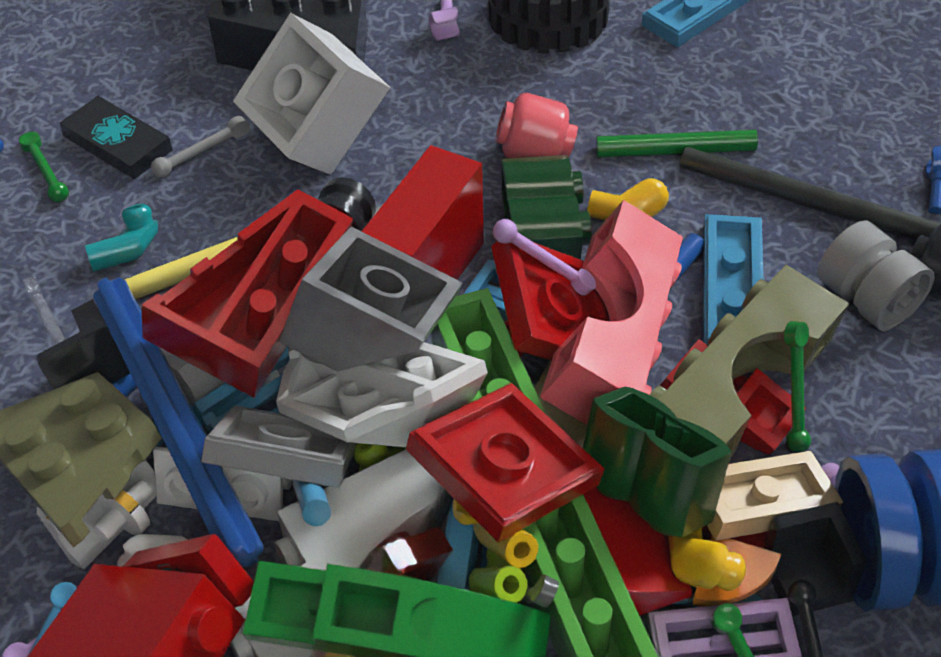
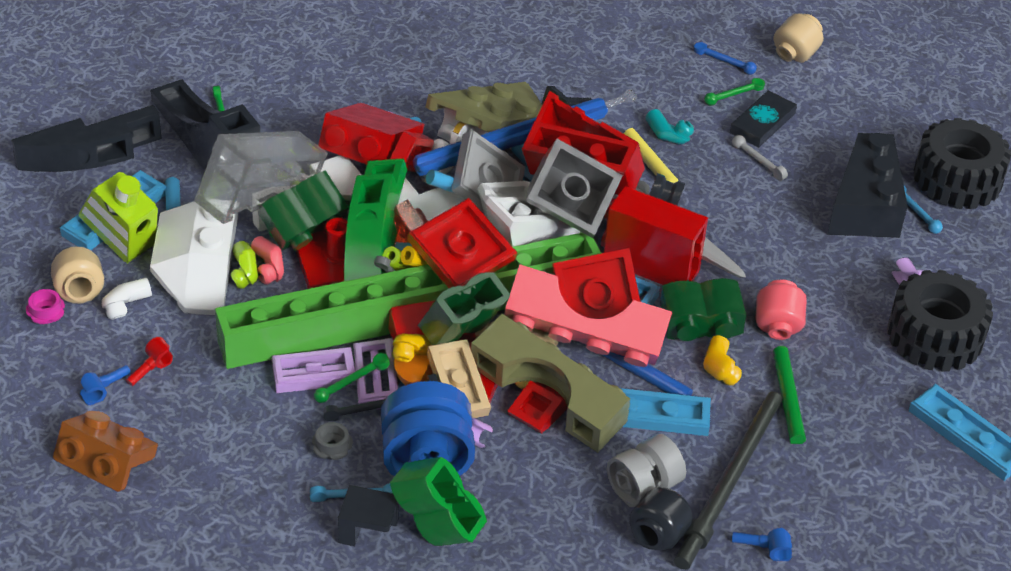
camera: 85 degrees right, 5 degrees down
(310, 94) = (786, 186): white brick -> none
(582, 280) = (623, 242): lavender hinge -> none
(796, 336) = (562, 390): green hinge -> none

